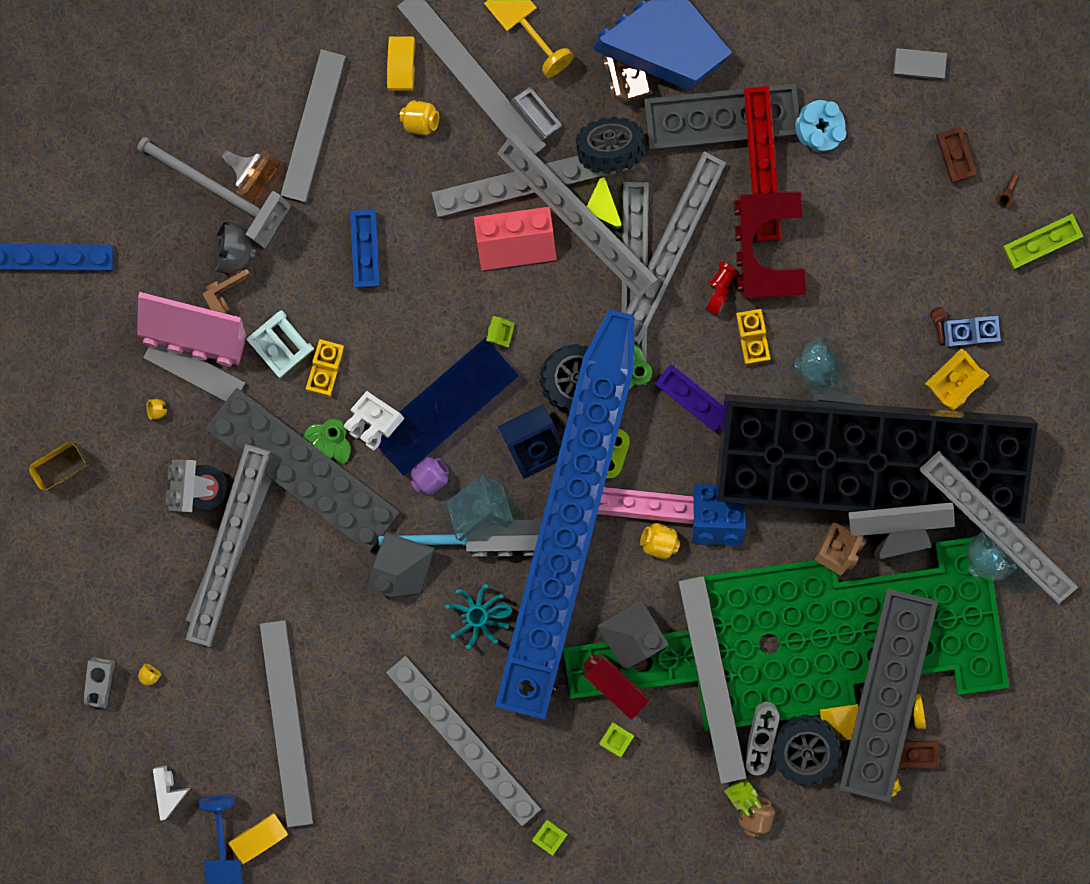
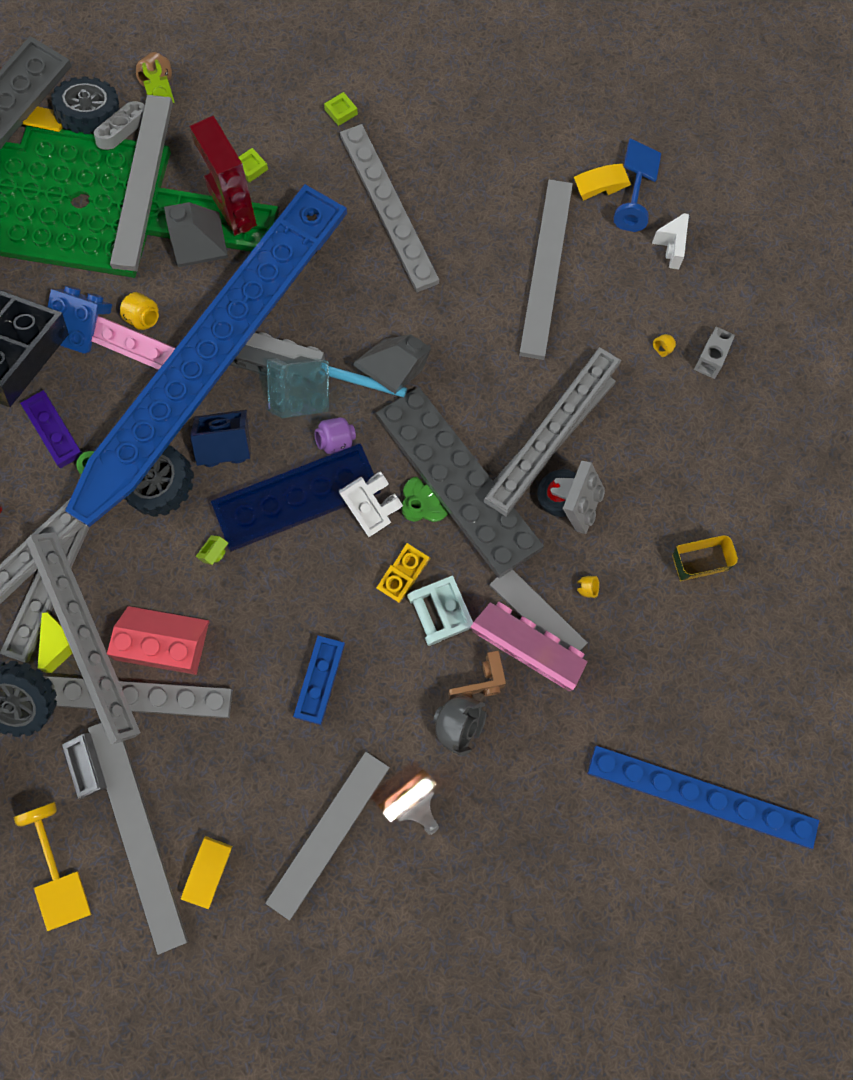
camera: 165 degrees left, 15 degrees down
(266, 219) = (413, 744): light grey tile -> none
(419, 118) = (209, 802): yellow head -> none
(479, 615) = (333, 299): teal animal -> none

